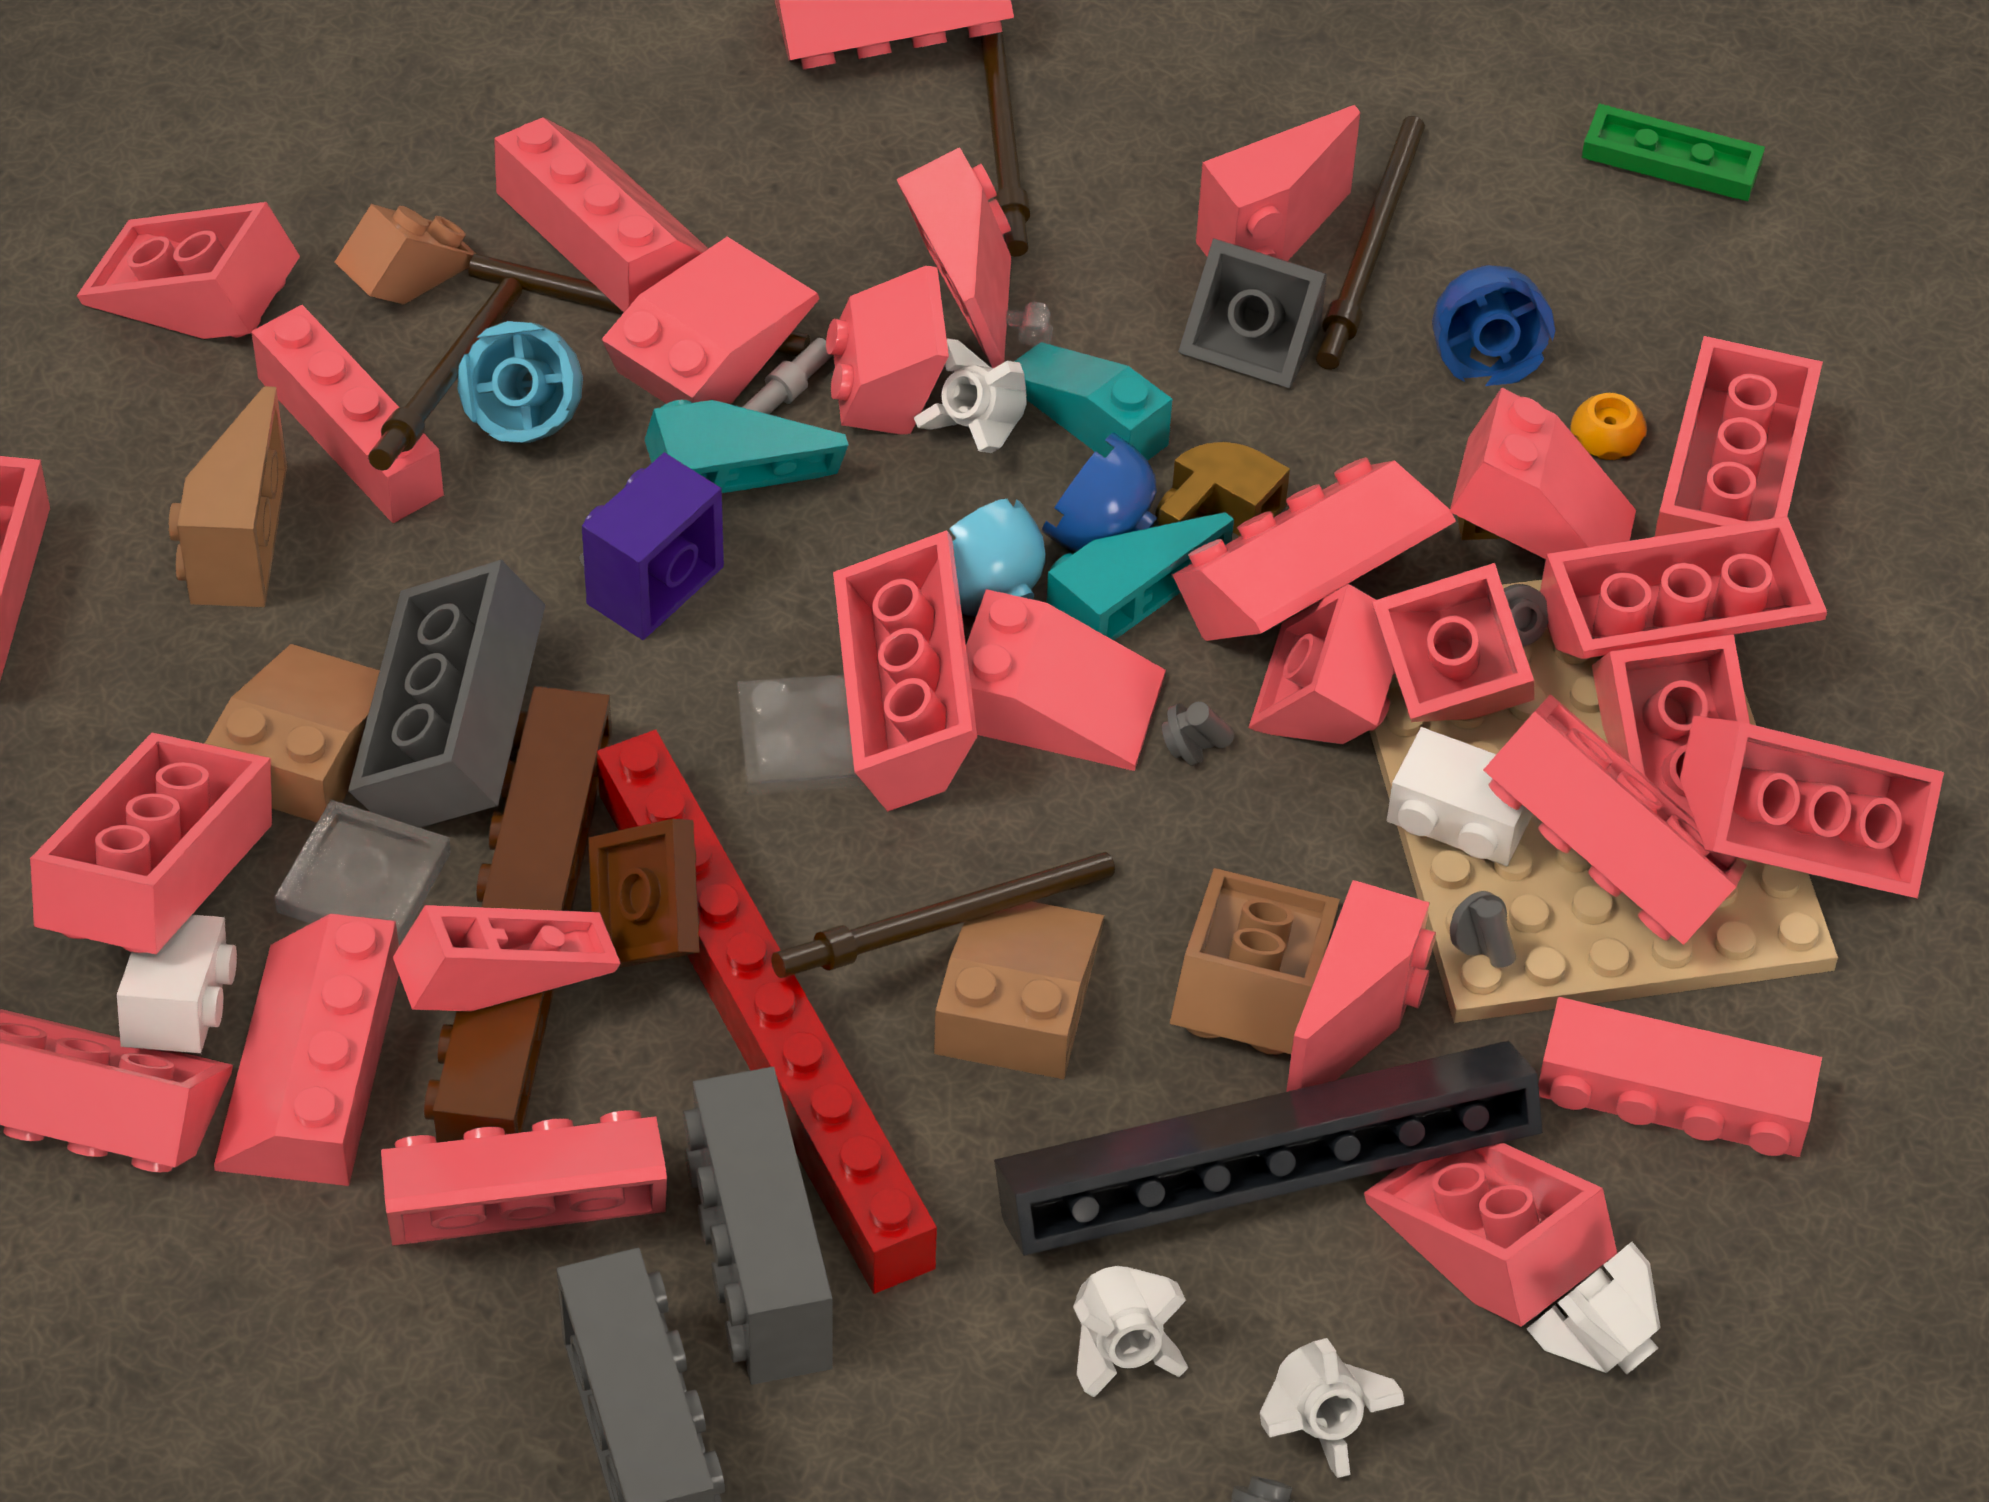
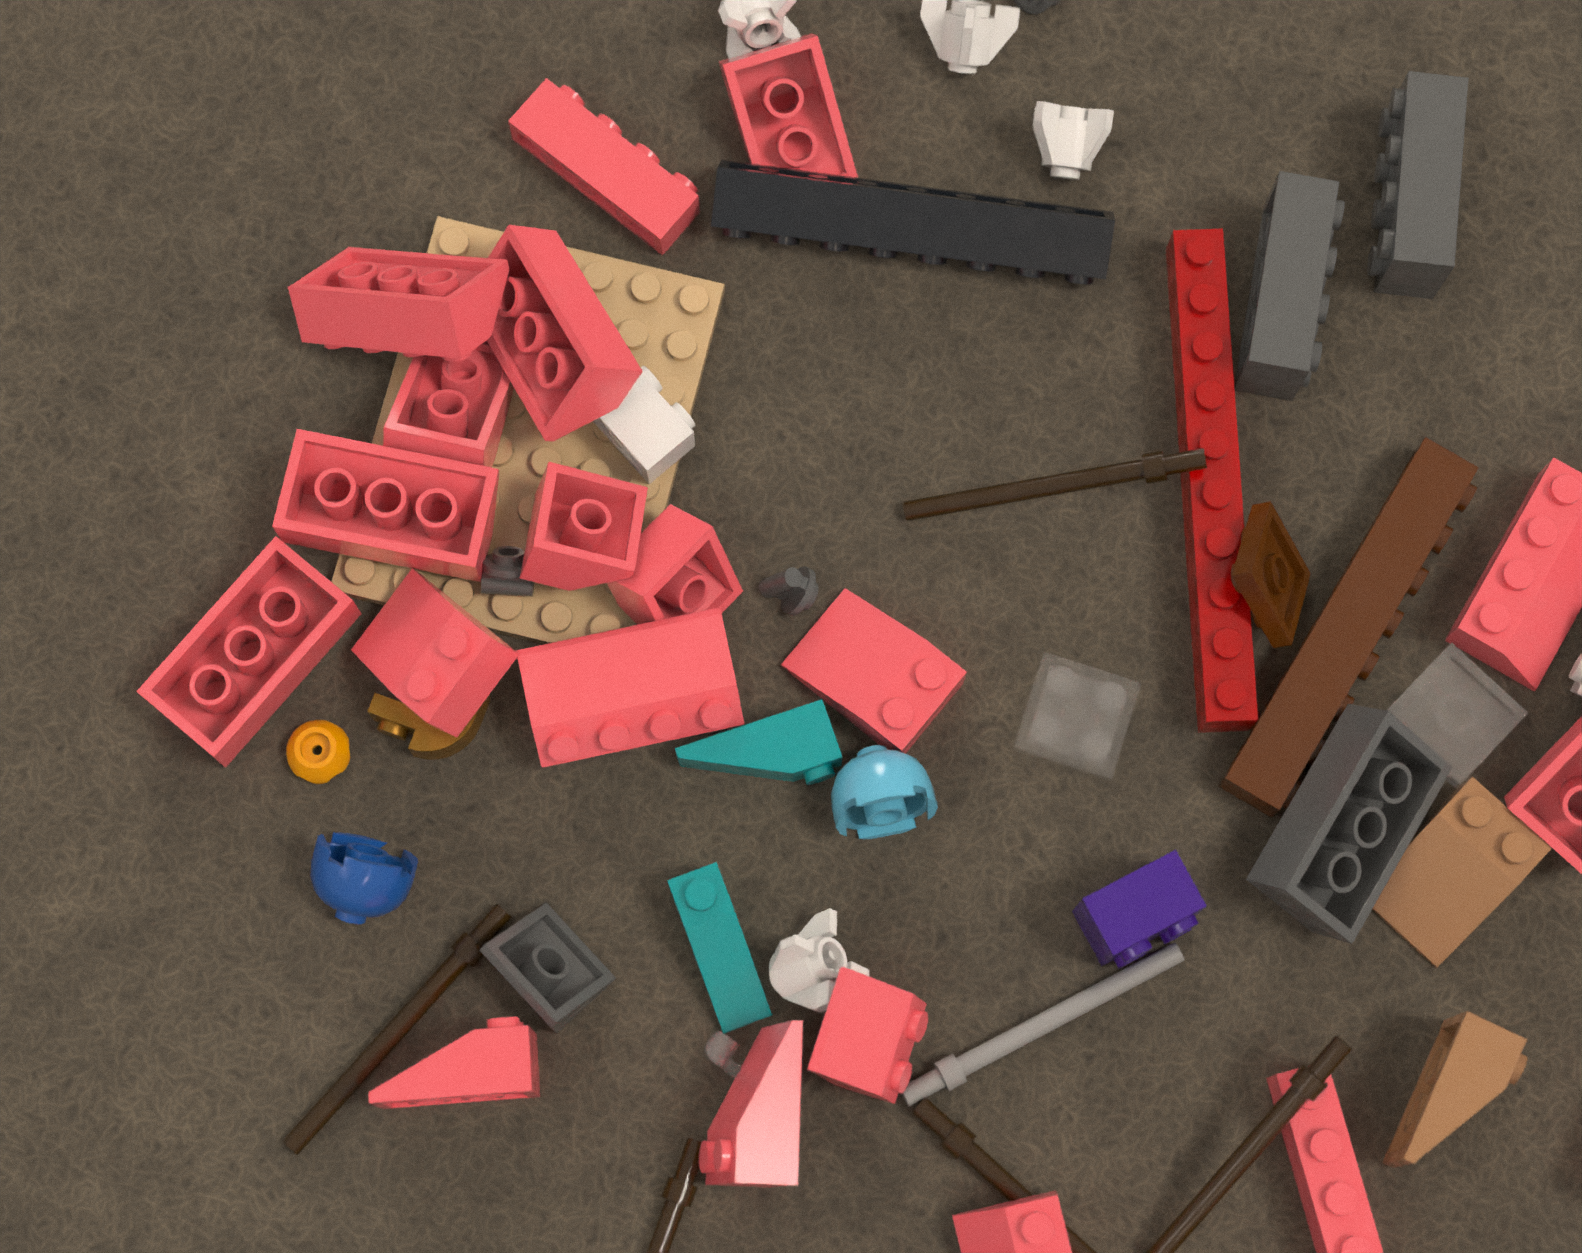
camera: 155 degrees left, 25 degrees up
(496, 955) = (1395, 550): coral slope -> none
(497, 382) = (1178, 1132): medium azure cylinder -> none
(523, 1178) = (1435, 386): coral slope -> none
(708, 325) = (998, 1134): coral slope -> none
(742, 446) = (1041, 994): teal slope -> none
(906, 670) = (995, 705): coral slope -> none
(1018, 988) = (1016, 427): medium nougat slope -> none
(1106, 498) = (762, 817): blue cylinder -> none
(1222, 480) = (656, 808): pearl gold brick -> none
(1252, 961) = (841, 378): medium nougat slope -> none
(1363, 983) = (797, 297): coral slope -> none
(1482, 928) = (683, 320): dark grey plate -> none
(1673, 152) = (95, 1012): green plate -> none

